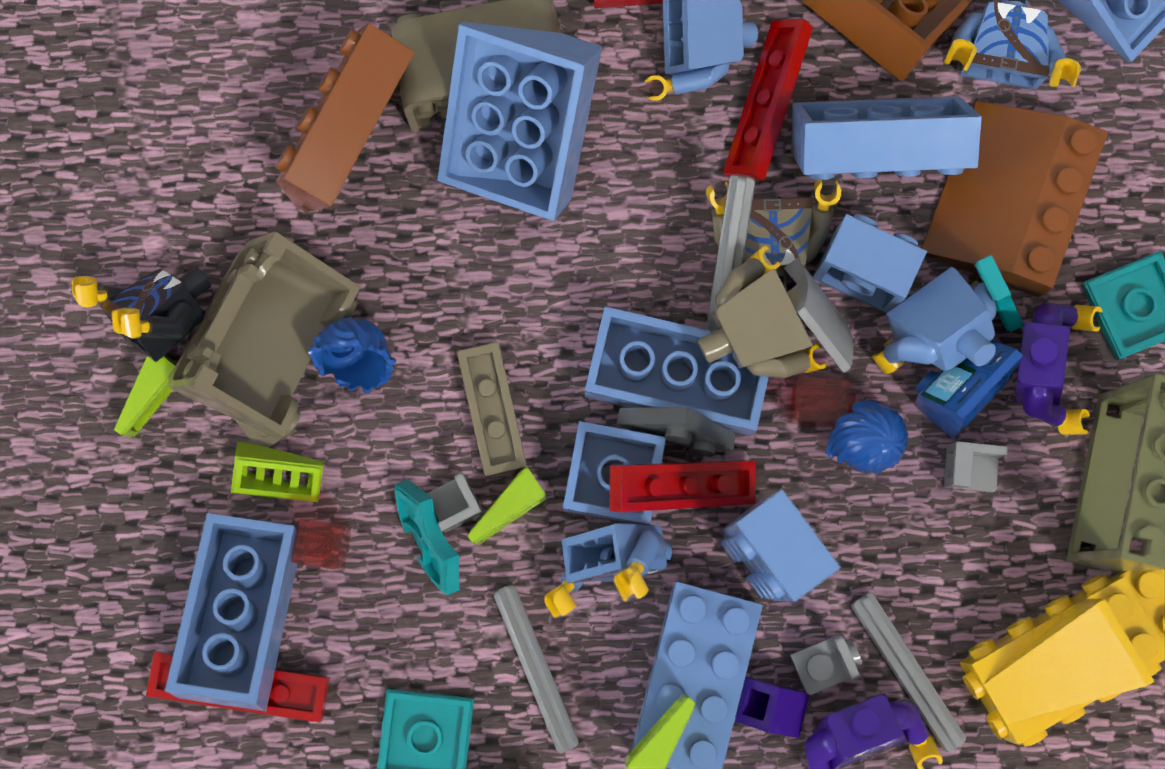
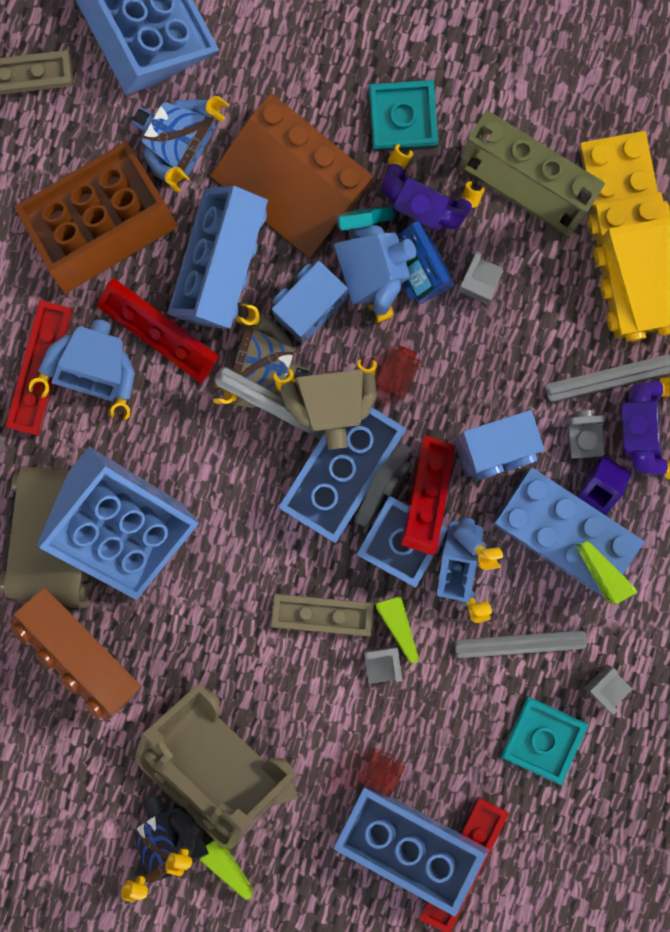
camera: 70 degrees left, 5 degrees up
(264, 457) = (303, 795): lime slope -> none
(353, 353) = (248, 703): blue hair -> none
(418, 516) = (418, 690): teal tile -> none
(820, 315) = (337, 352): light grey slope -> none
(869, 437) = (437, 347): blue hair -> none

